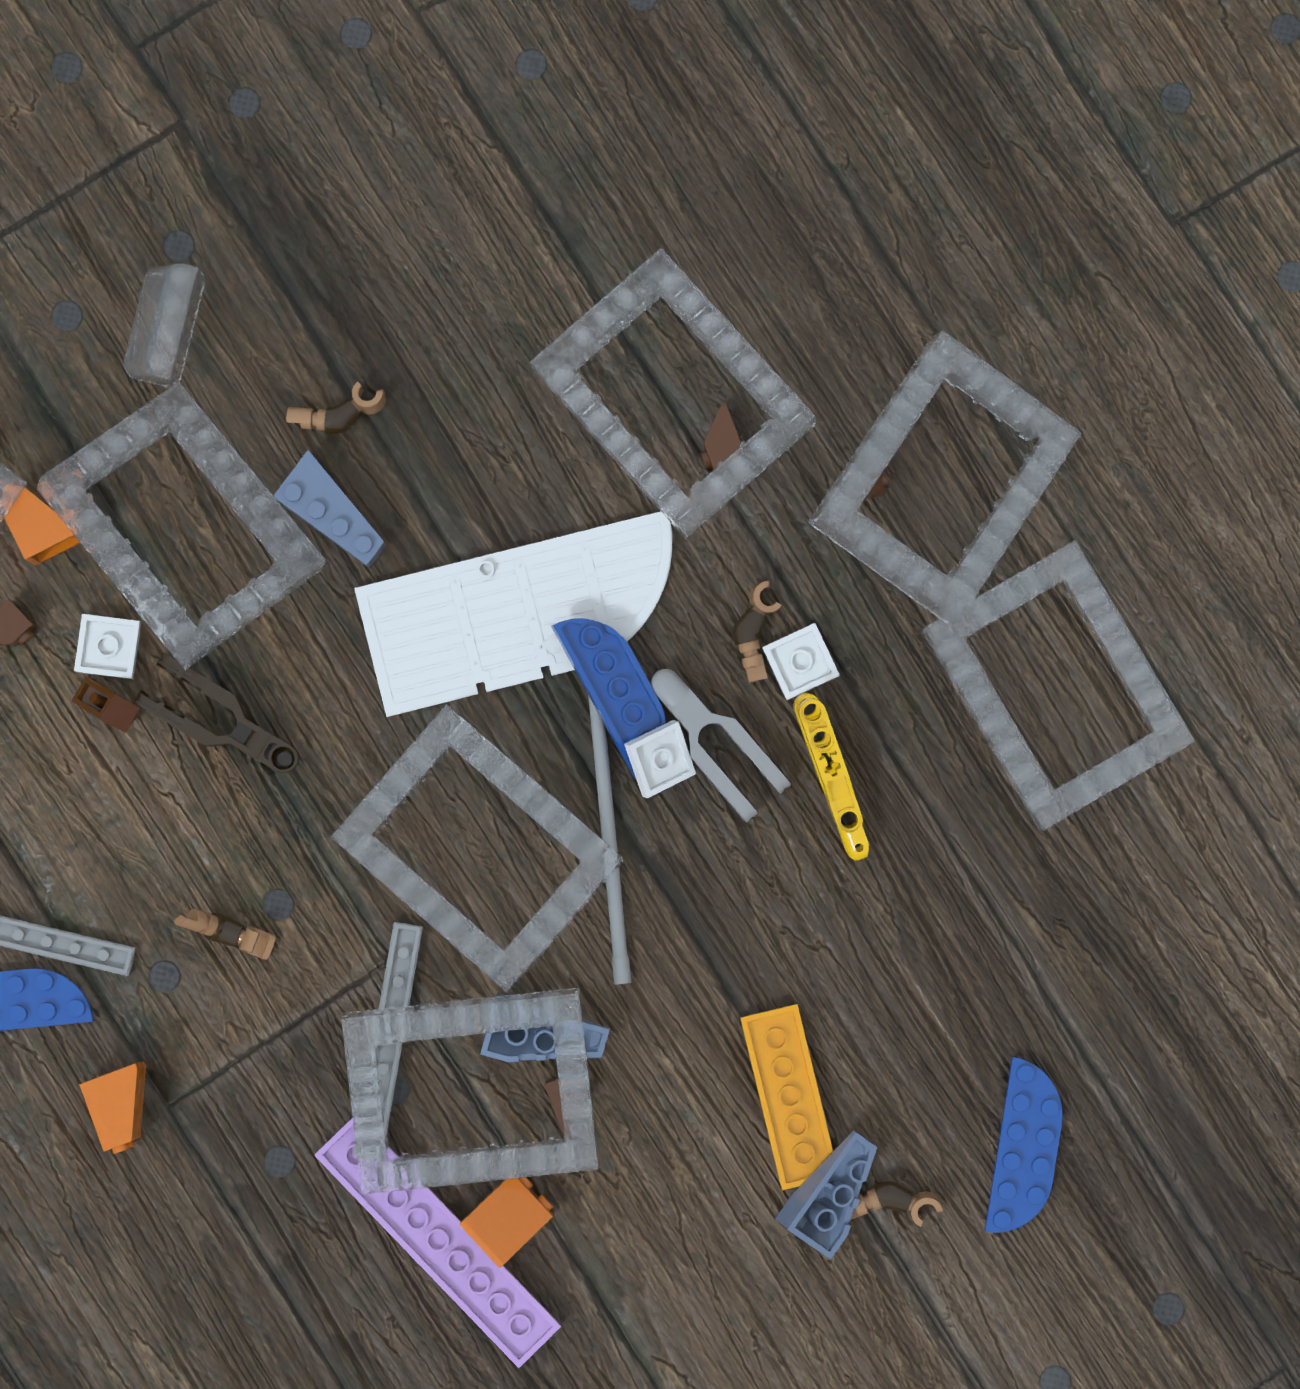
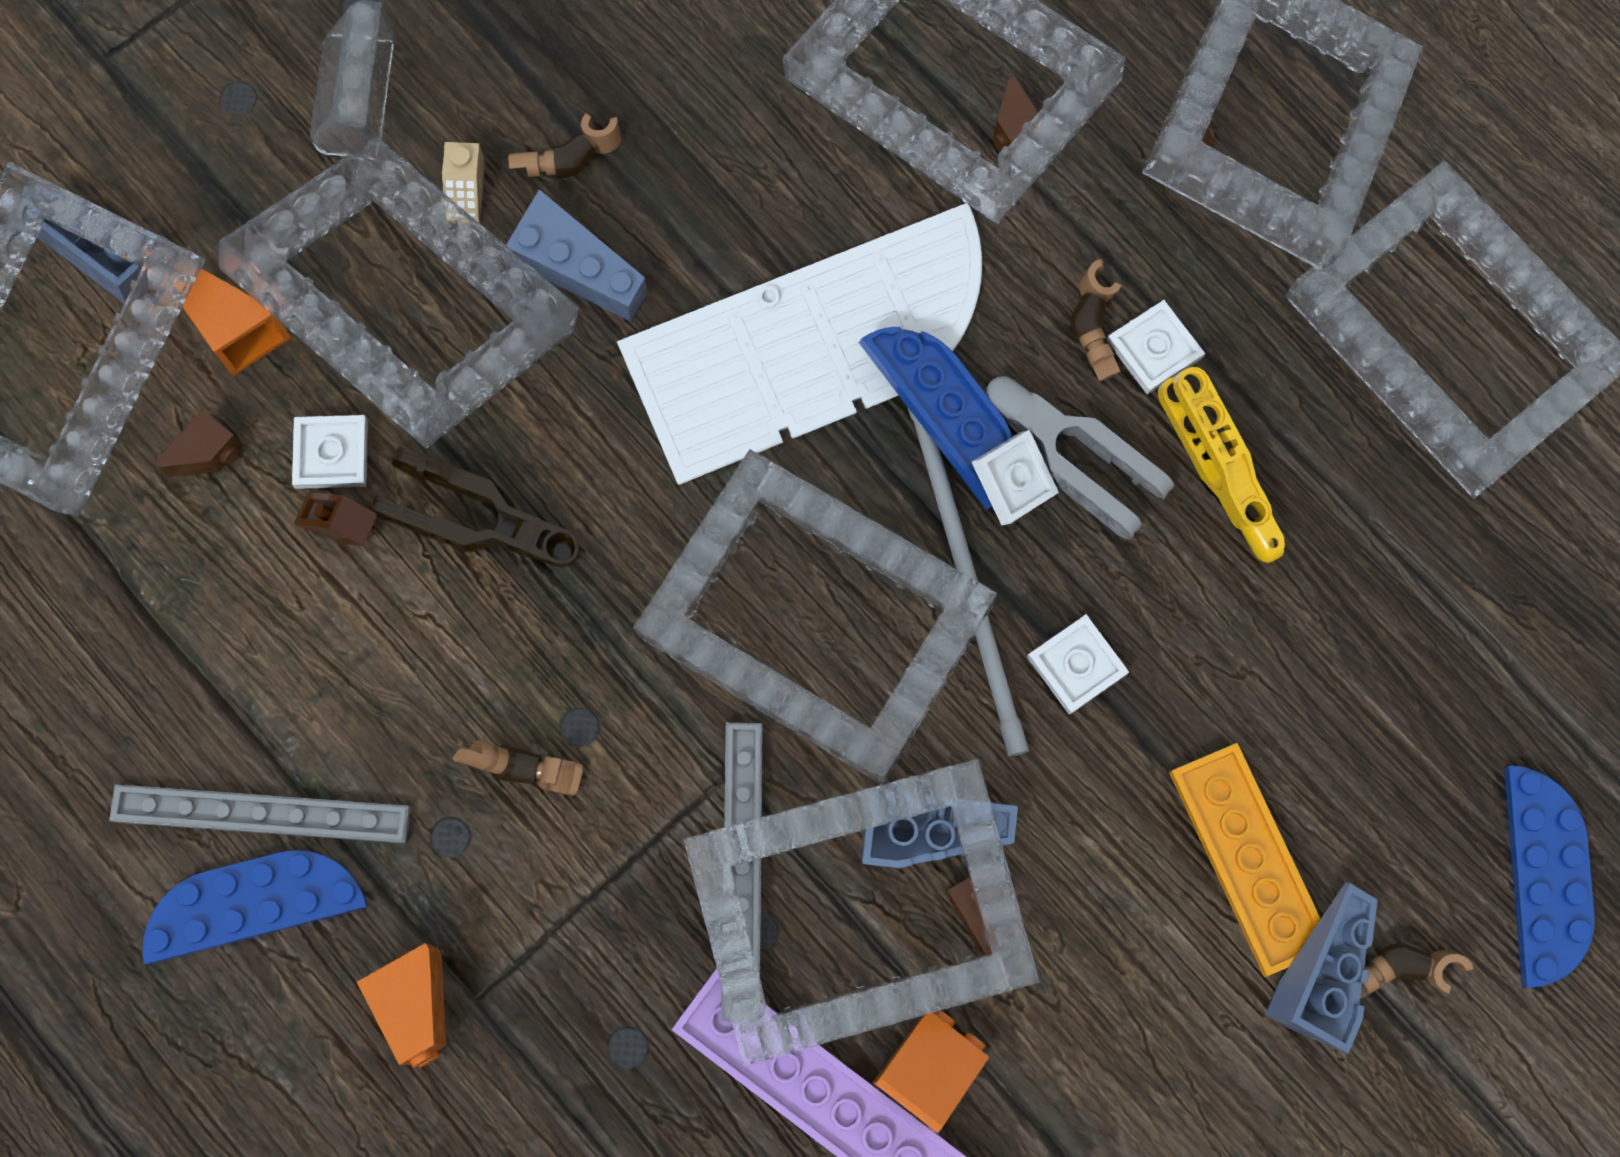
camera: 15 degrees left, 10 degrees down
(246, 426) = (464, 176): none -> tan slope
(683, 919) = (1077, 664): none -> white plate

